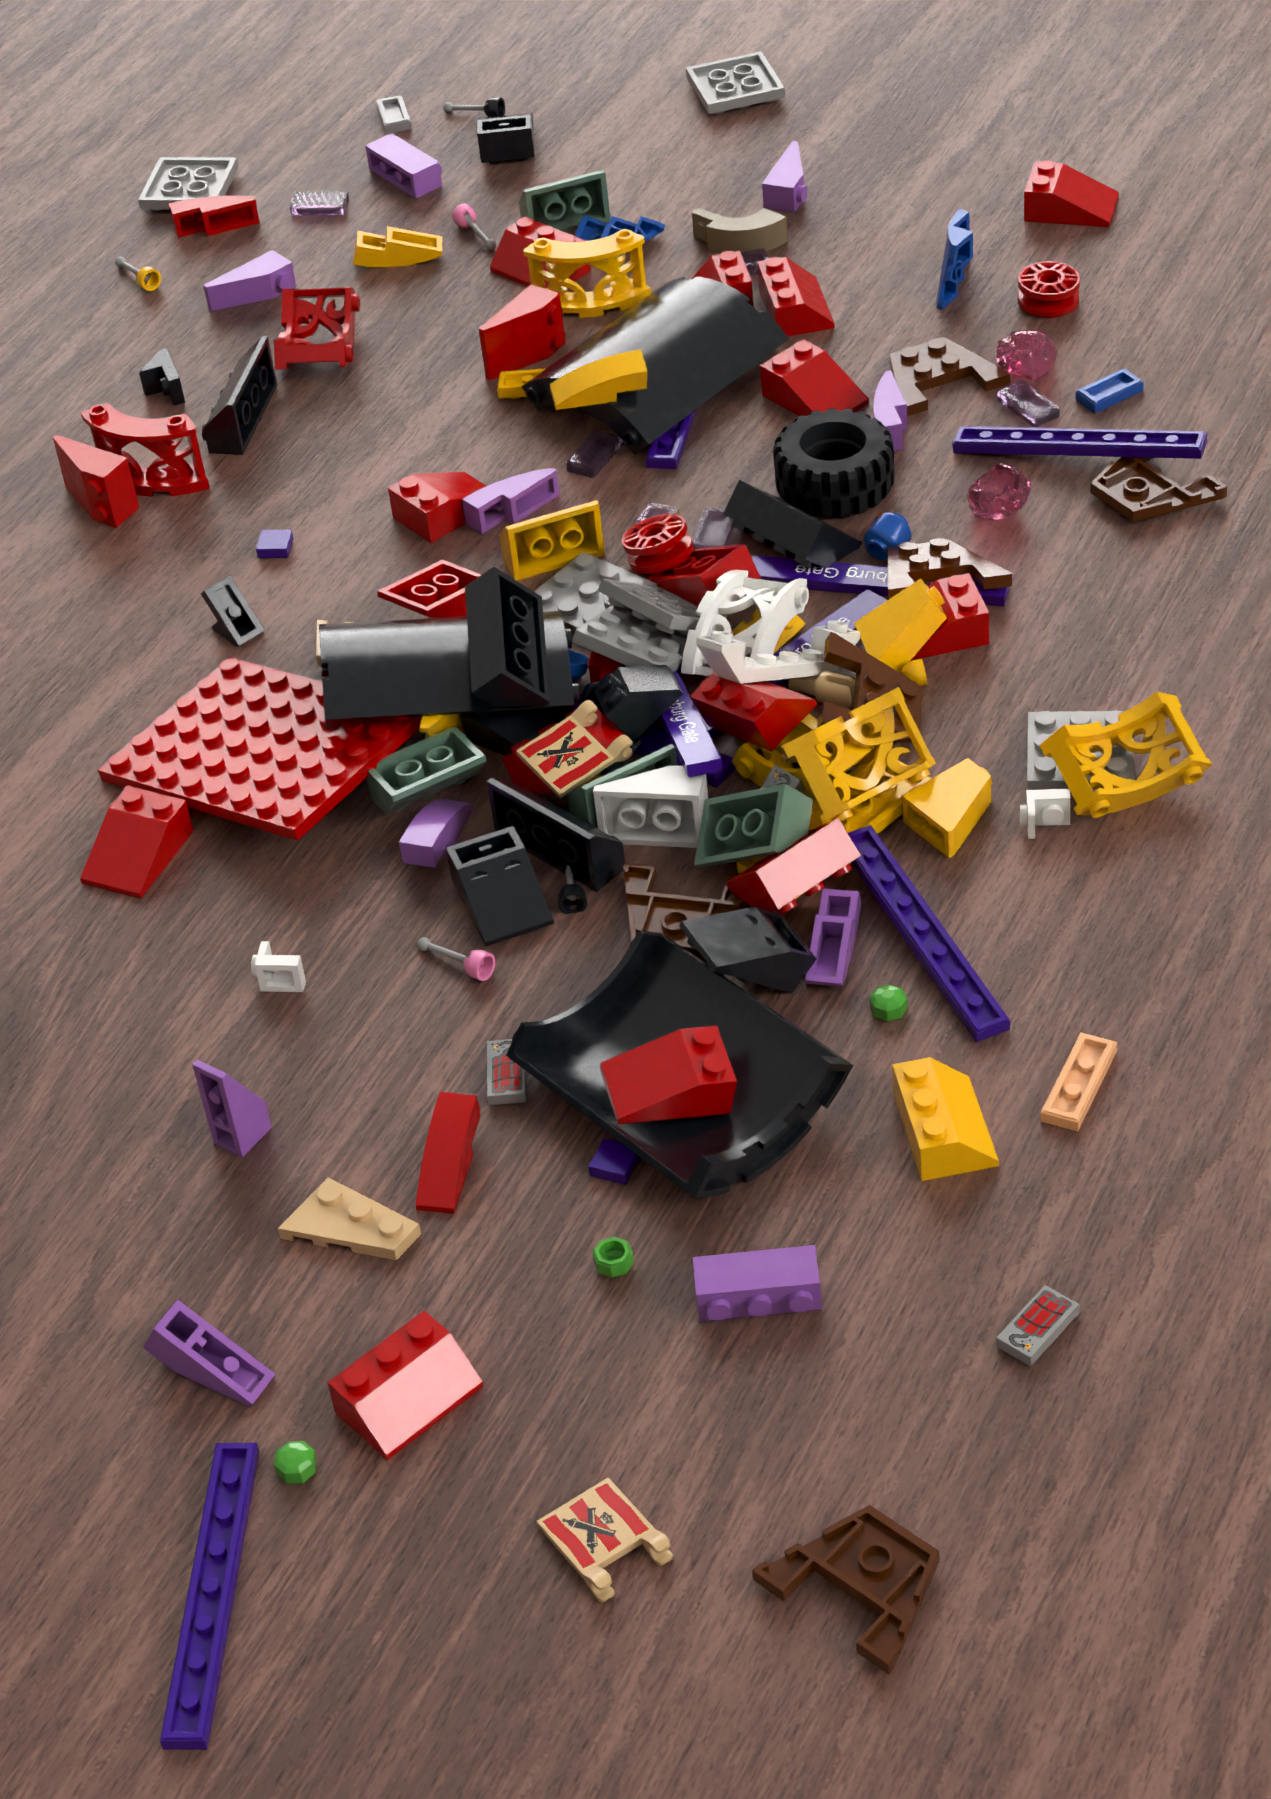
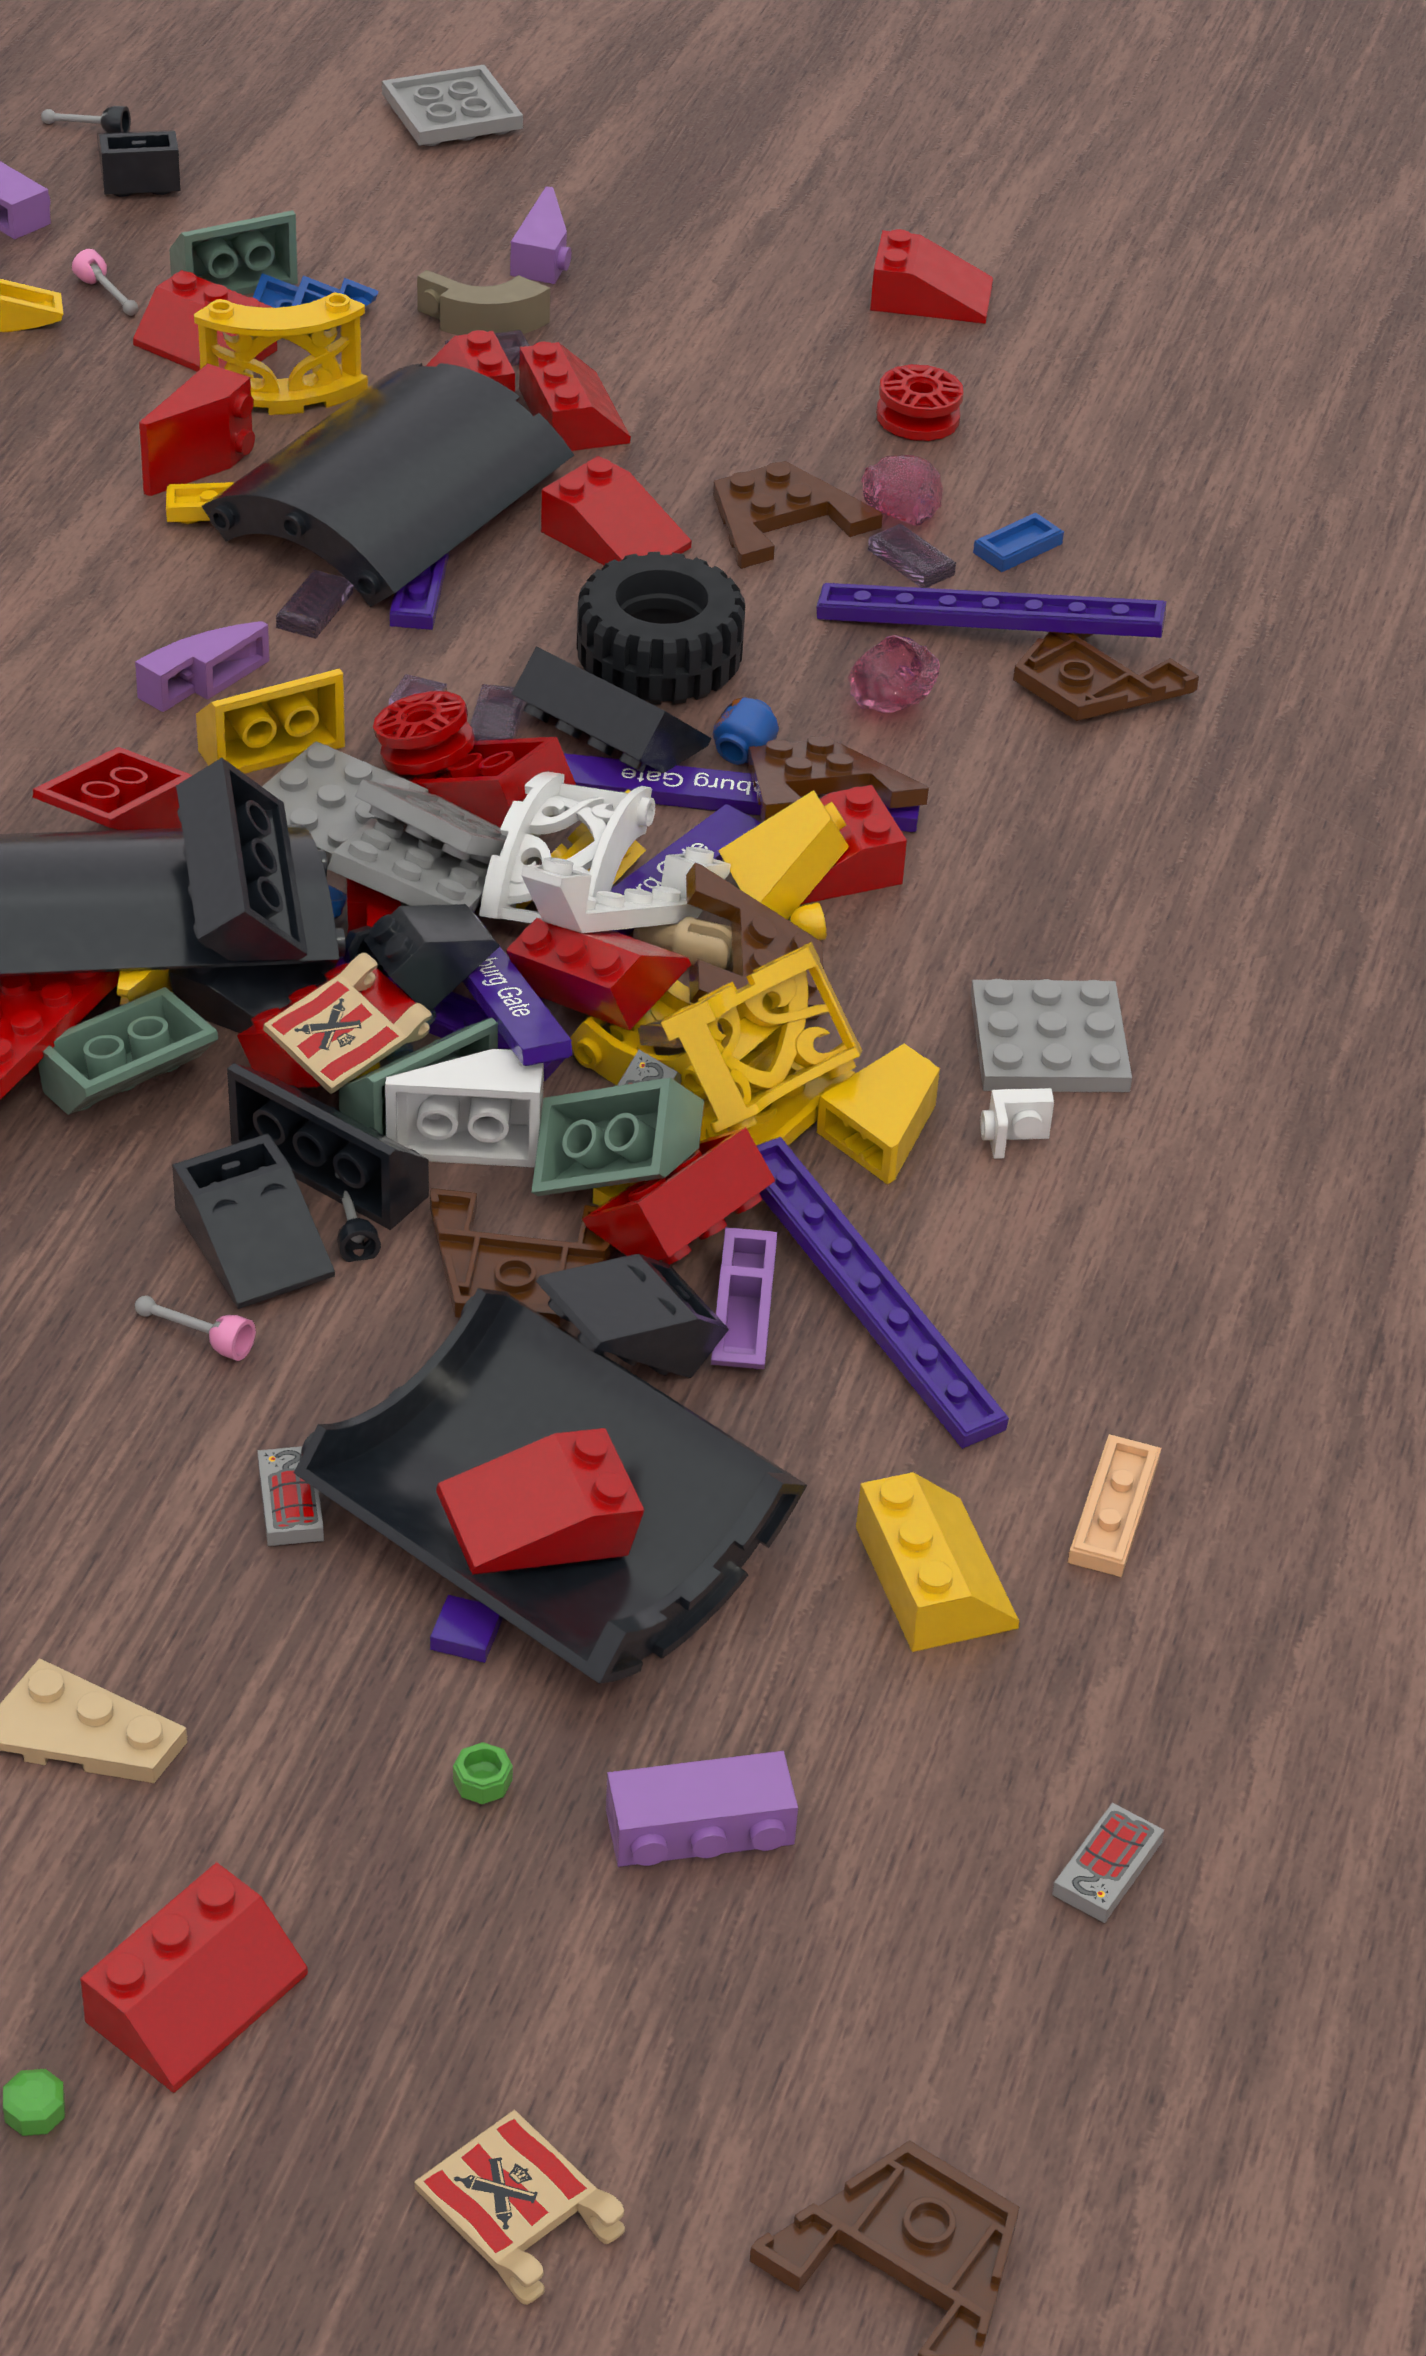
camera: 15 degrees left, 0 degrees up
(432, 502) = (88, 665): red slope -> none
(432, 831) = (144, 1141): medium lavender slope -> none
(447, 1152) = (218, 1619): red slope -> none
(600, 381) = (326, 501): yellow slope -> none
(888, 1002) = (833, 1392): bright green tile -> none
(891, 408) = (728, 548): slope -> none
(956, 256) = (793, 350): blue slope -> none
(1074, 748) = (1051, 1031): yellow fence -> none

